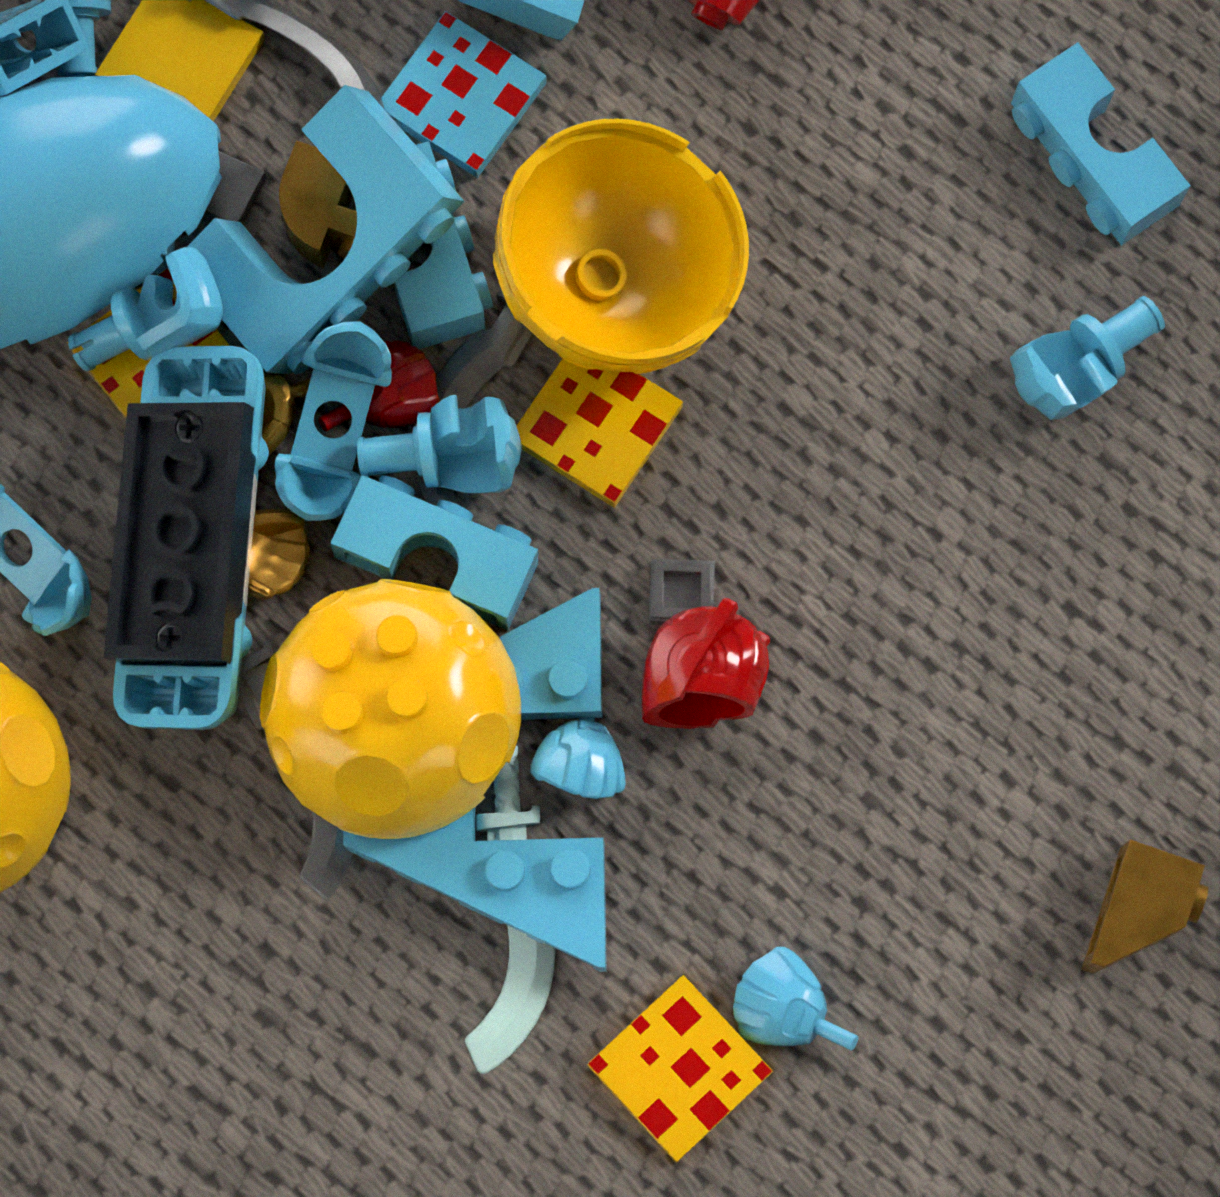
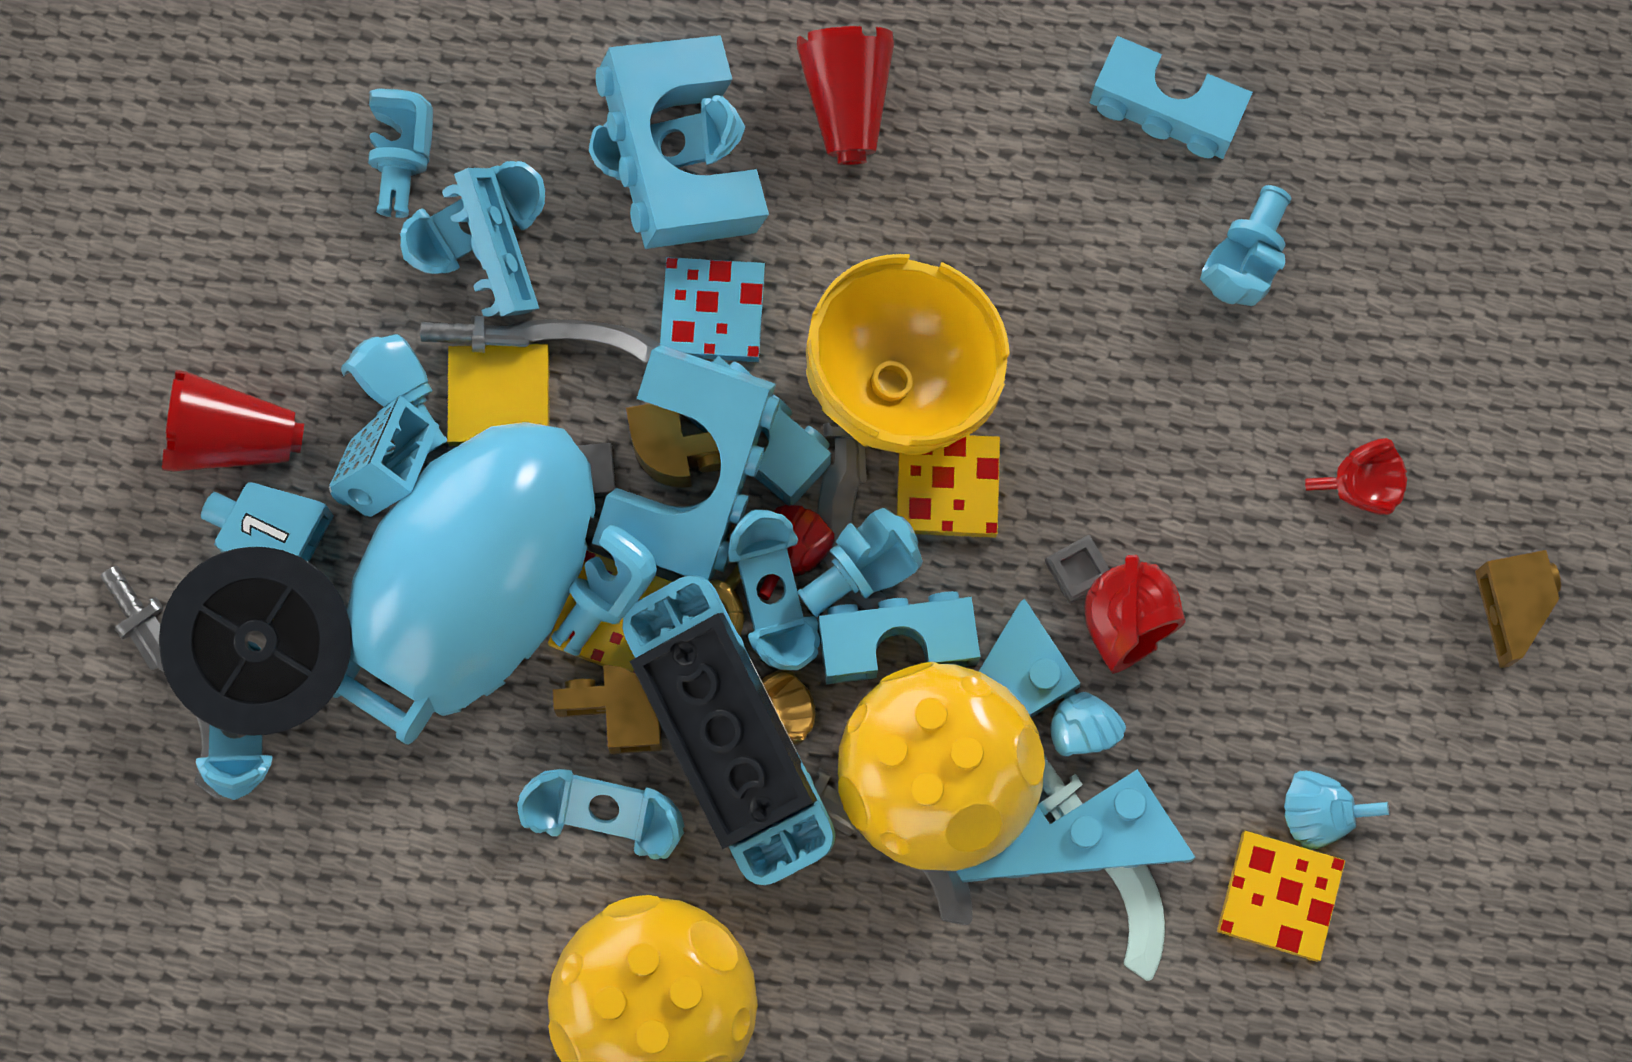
camera: 30 degrees left, 0 degrees up
(95, 464) = (629, 715): none -> pearl gold brick
(1061, 677) = (1368, 478): none -> red piece

